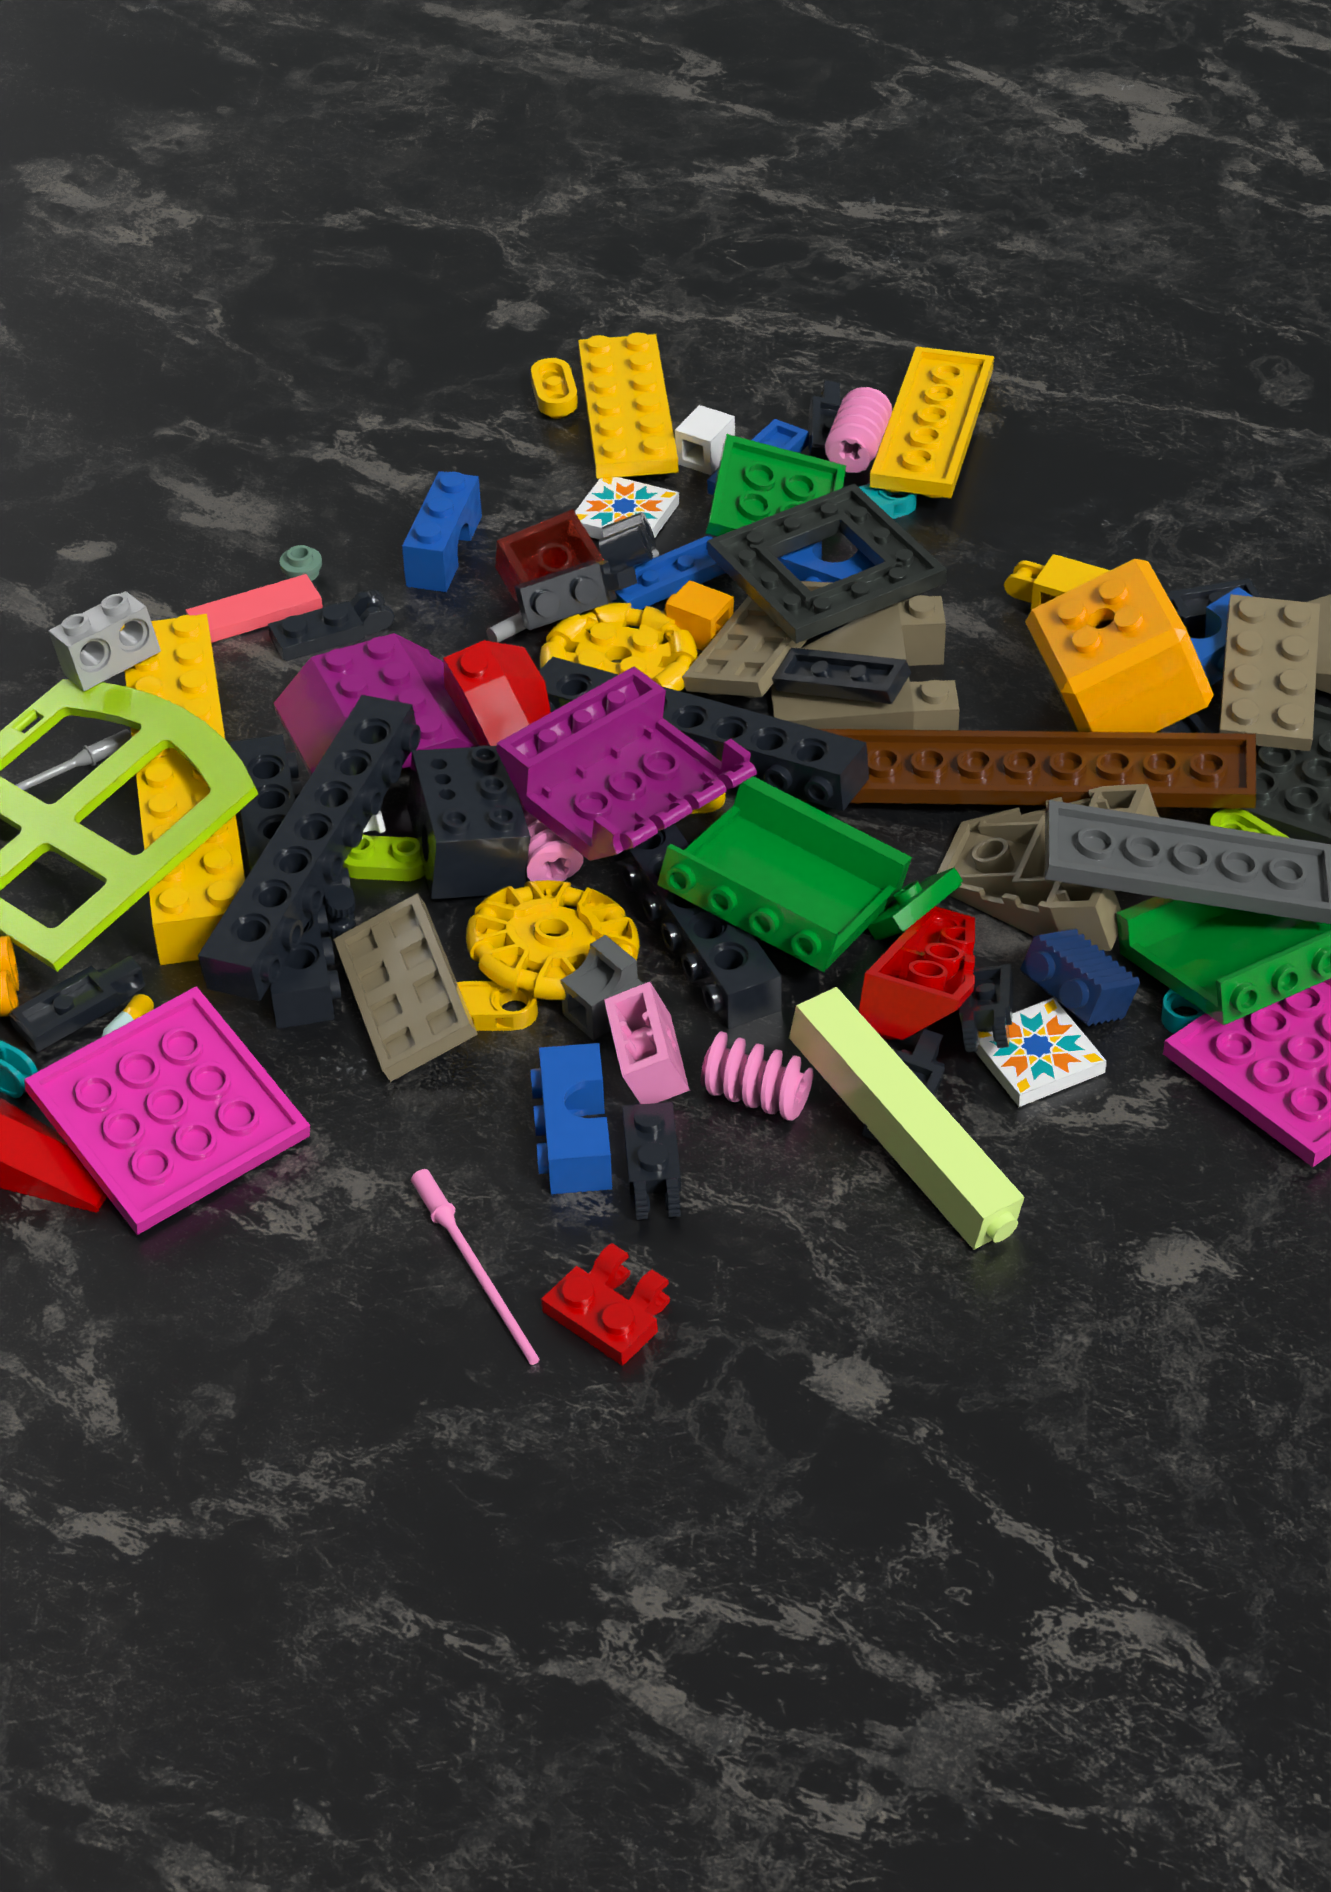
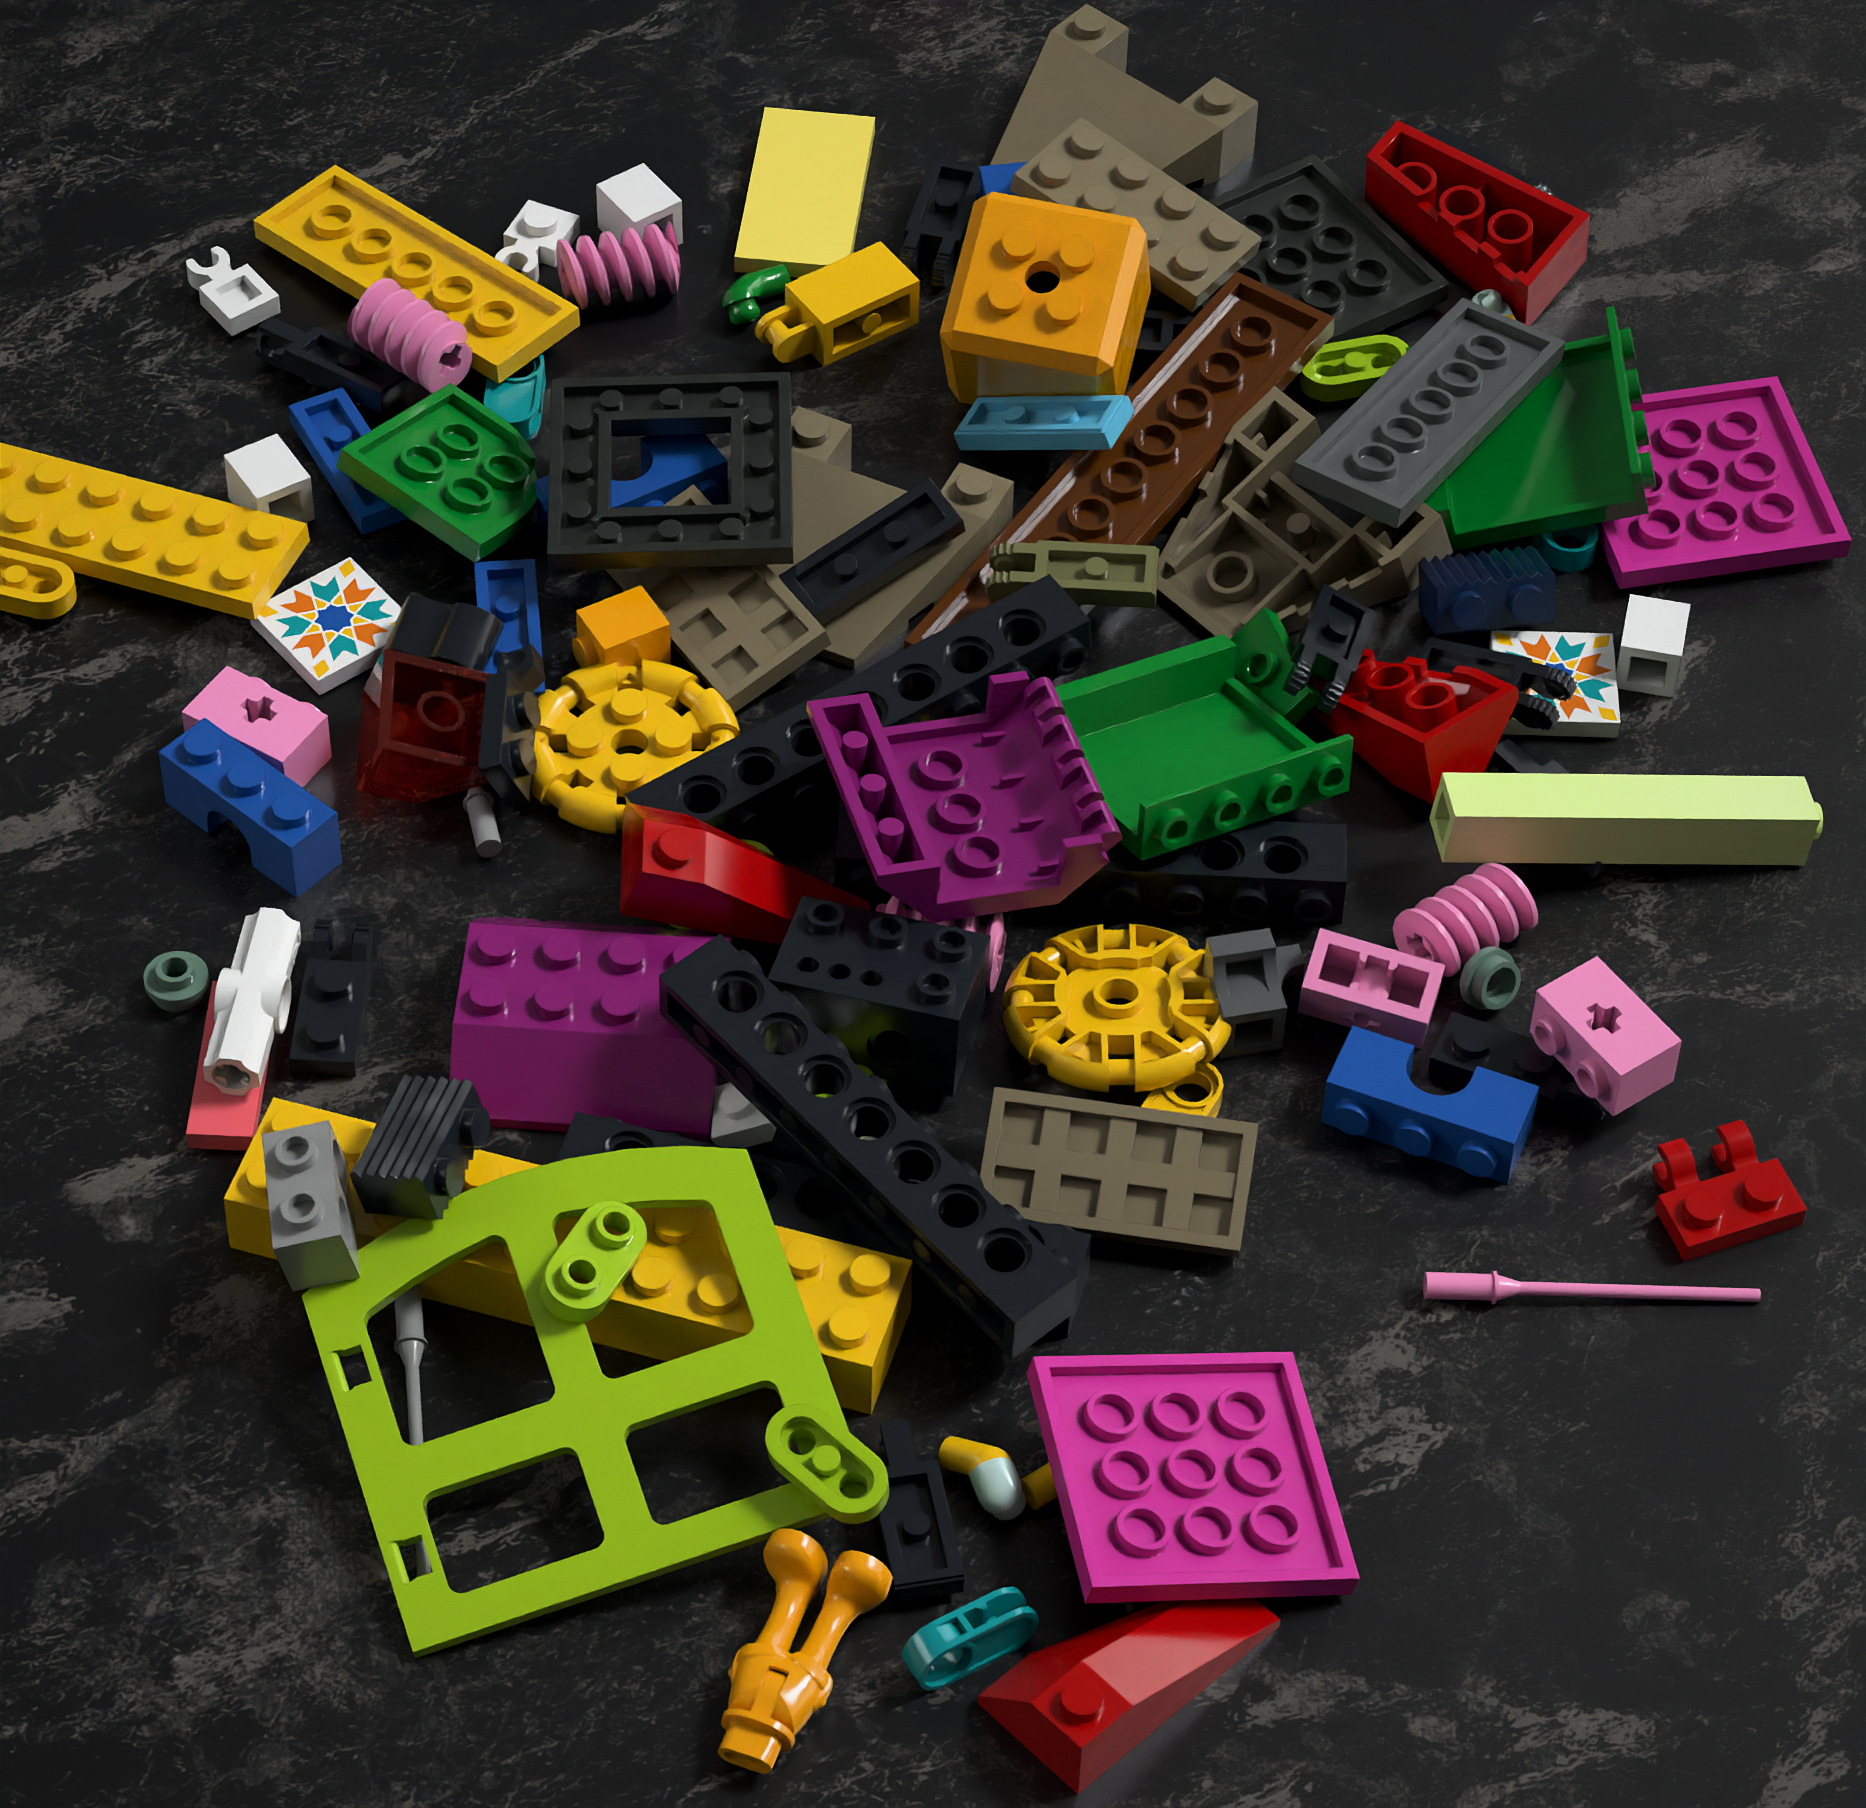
camera: 65 degrees left, 5 degrees up
(50, 925) = (830, 1466): none -> lime plate
(141, 768) = (596, 1257): none -> lime plate
(173, 662) = (421, 1148): none -> black brick
(286, 584) = (252, 1001): none -> white piece
(504, 507) = (269, 723): none -> bright pink brick
(677, 1170) = (1604, 1036): none -> bright pink brick
(703, 1113) = (1490, 979): none -> sand green plate
(856, 367) = (232, 296): none -> white plate
(904, 770) = (1086, 571): none -> olive hinge
(939, 908) = (1330, 645): none -> black hinge
(1016, 492) = (619, 265): none -> bright pink piece
(1020, 459) = (534, 236): none -> white plate
(1042, 552) = (753, 287): none -> green arm
(1042, 711) = (1044, 423): none -> medium azure tile
(1074, 483) = (635, 201): none -> white brick
(1109, 1083) = (1652, 645): none -> white brick
(1179, 541) = (804, 190): none -> light yellow tile

